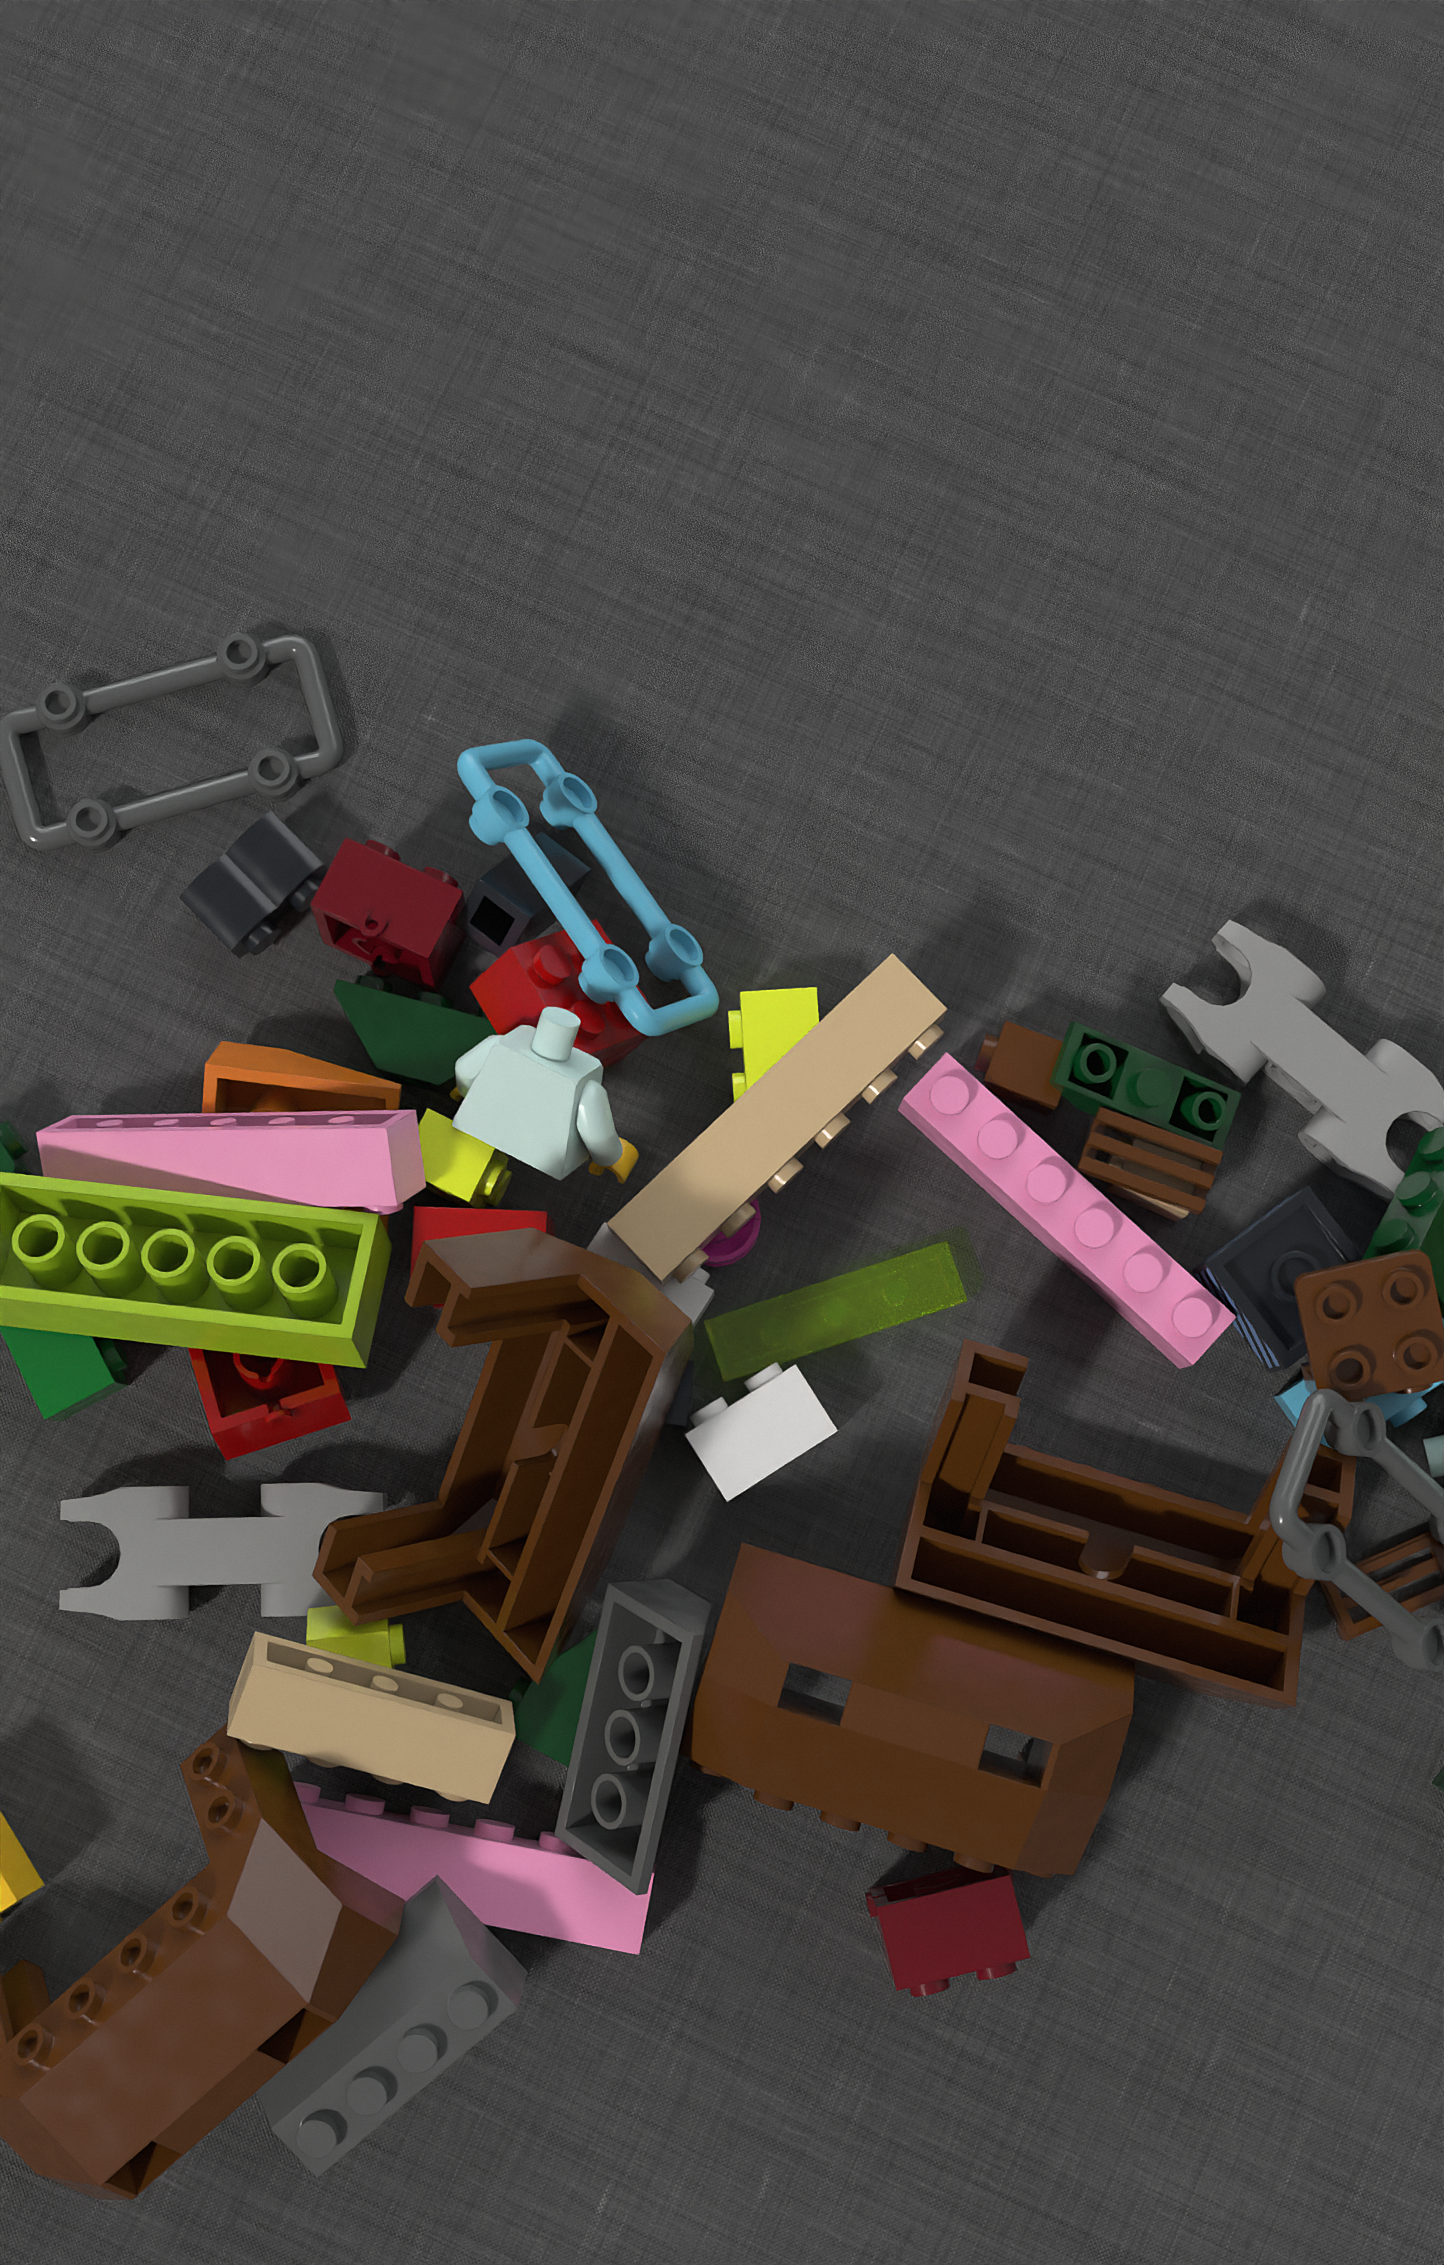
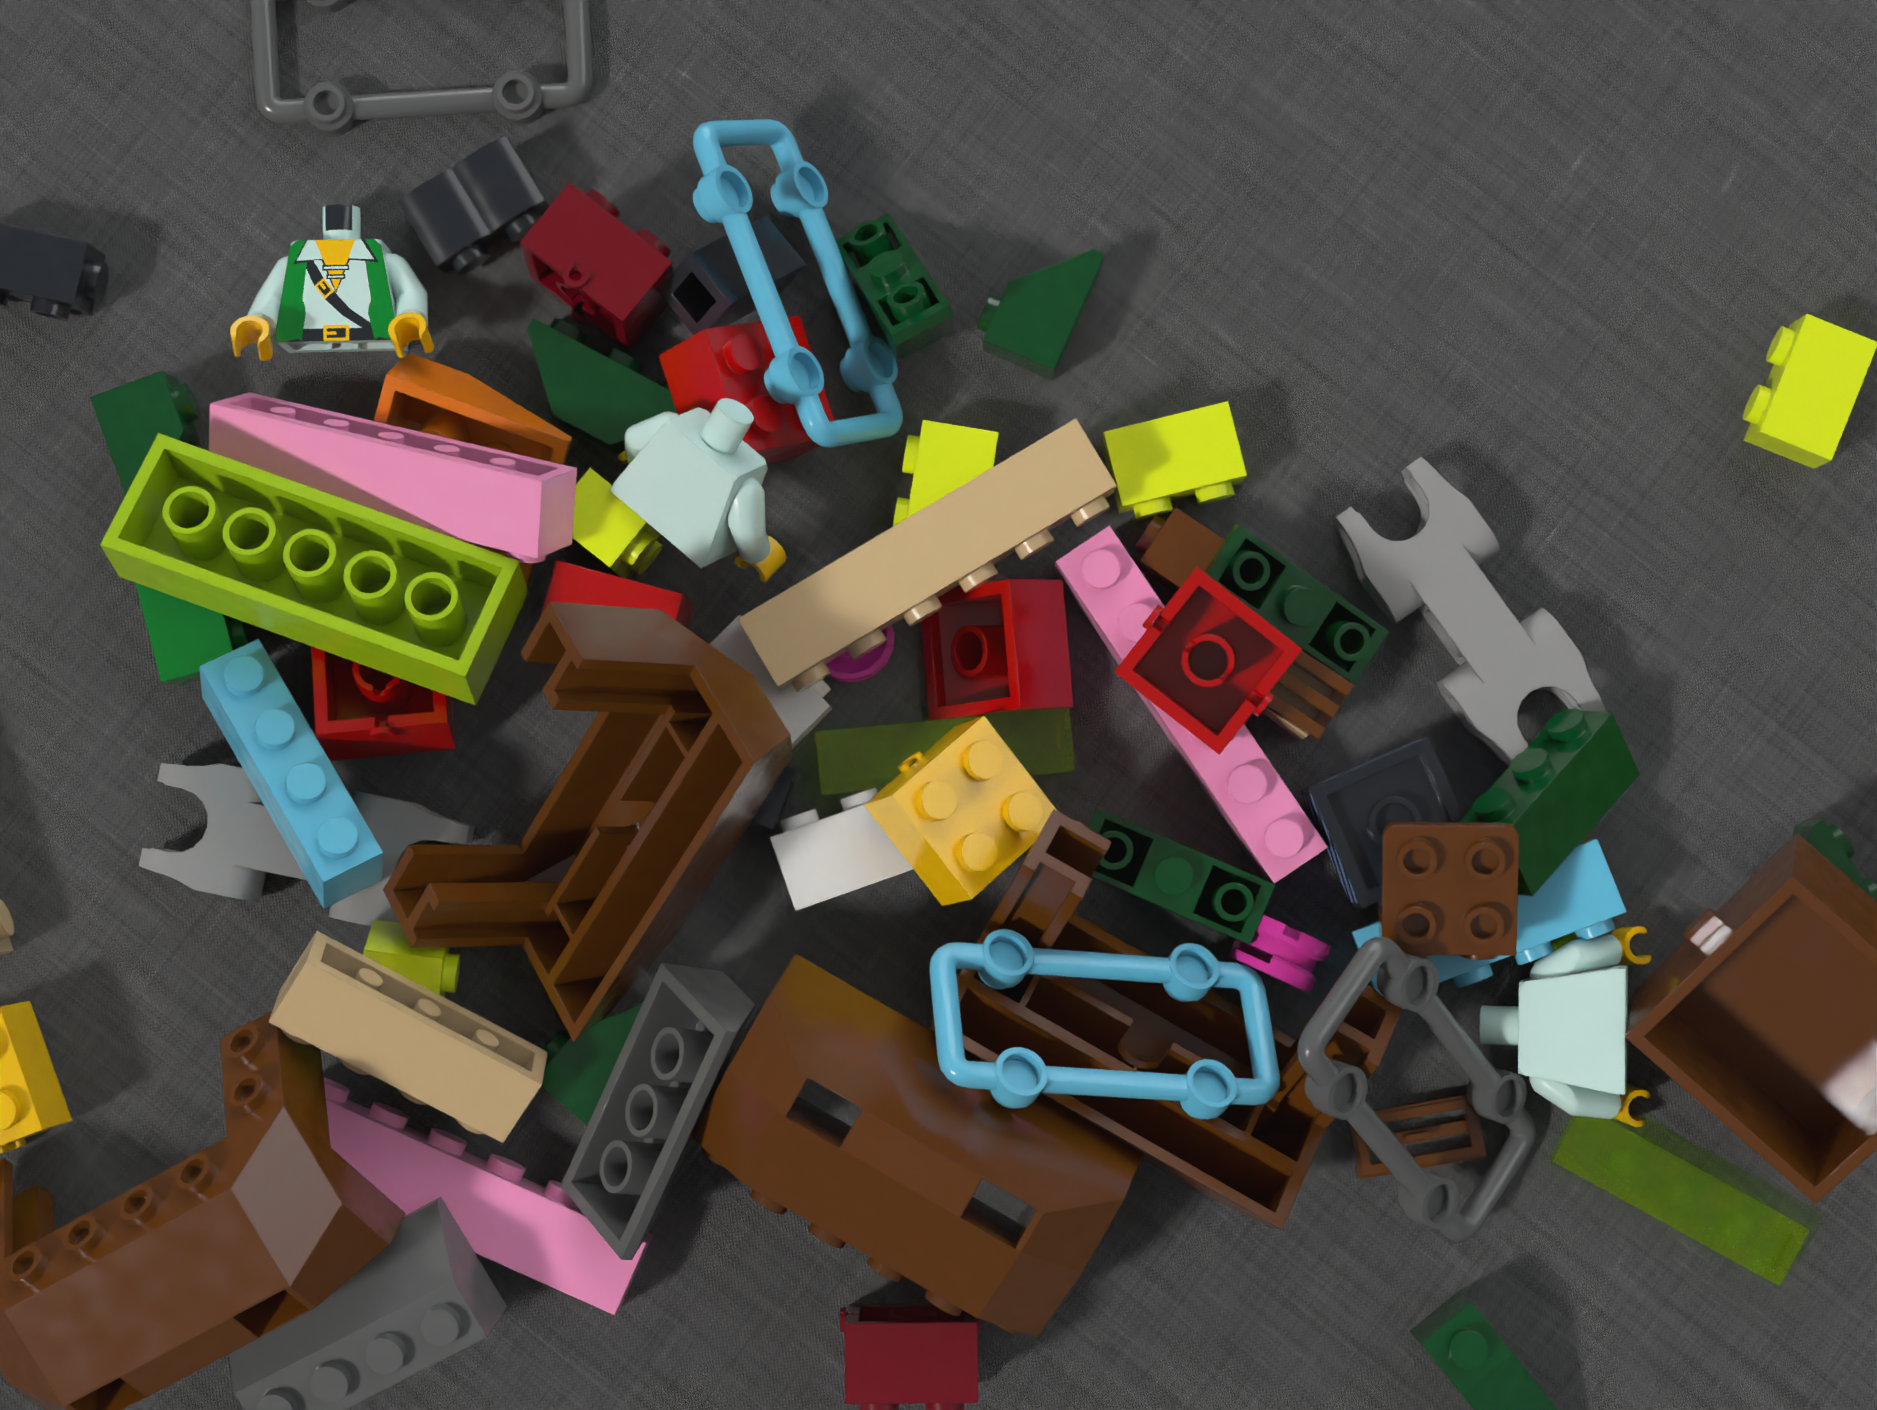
camera: 20 degrees right, 5 degrees up
(139, 1002) = (337, 296): none -> torso
(195, 1480) = (291, 773): none -> medium azure brick
(684, 872) = (895, 286): none -> dark green slope
(827, 866) = (1040, 313): none -> dark green slope
(864, 1200) = (998, 650): none -> red slope
(870, 1364) = (962, 811): none -> yellow brick
(993, 975) = (1174, 460): none -> neon yellow brick
(1000, 1610) = (1022, 1075): none -> medium azure bar
(1081, 1156) = (1208, 660): none -> red brick
(1101, 1382) = (1180, 878): none -> dark green slope
(1212, 1431) = (1282, 953): none -> dark pink wheel

